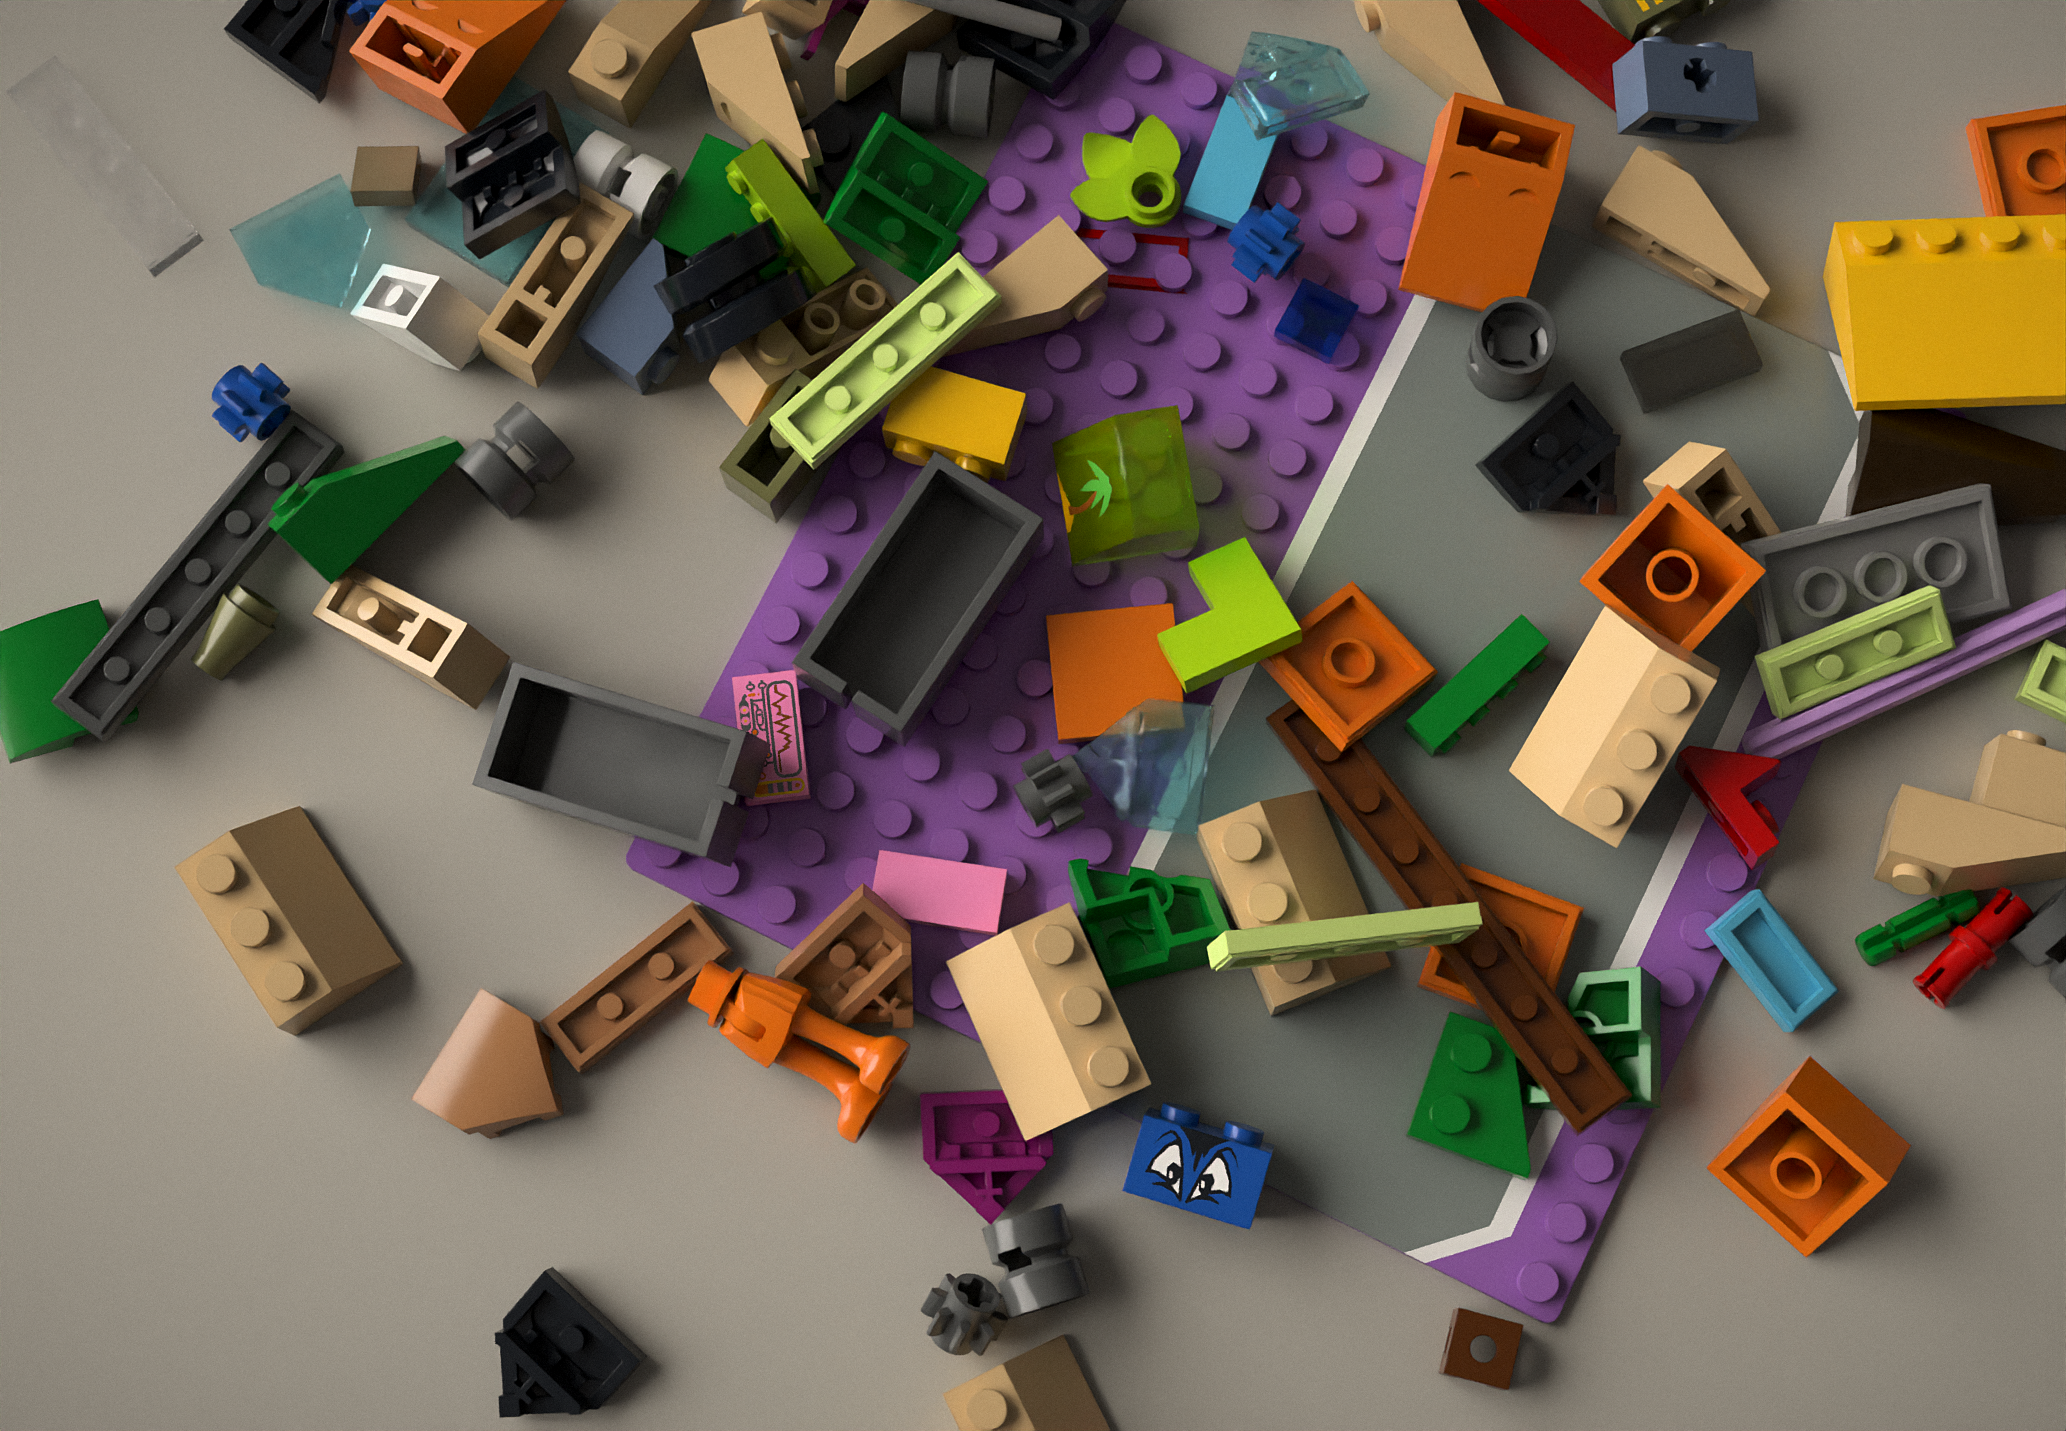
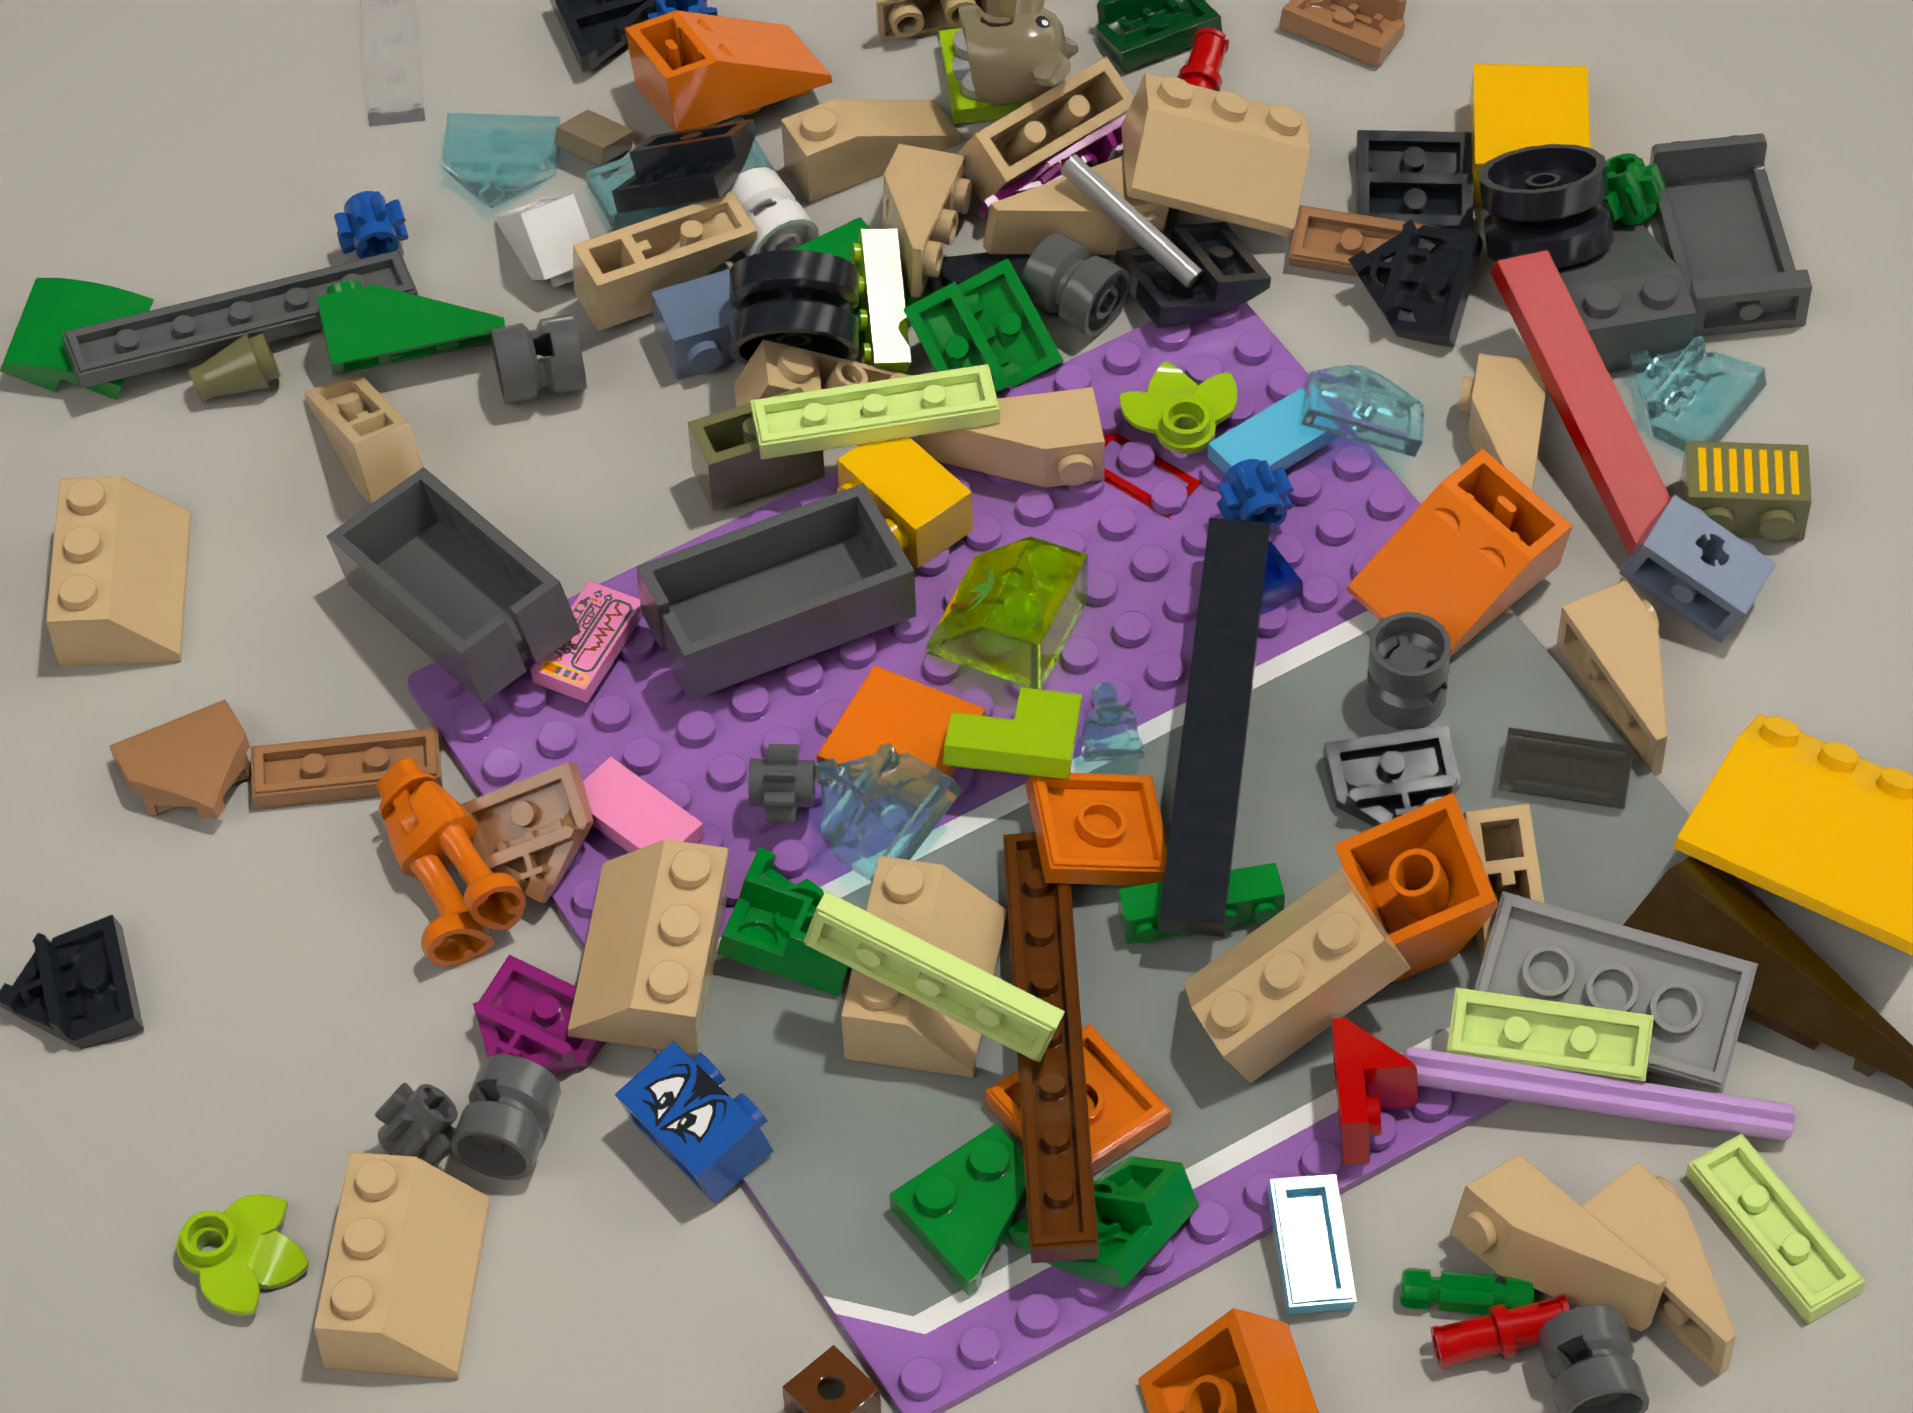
camera: 30 degrees right, 25 degrees down
(1290, 557) = (1110, 728): none -> clear light blue piece
(1387, 506) = (1215, 729): none -> black tile

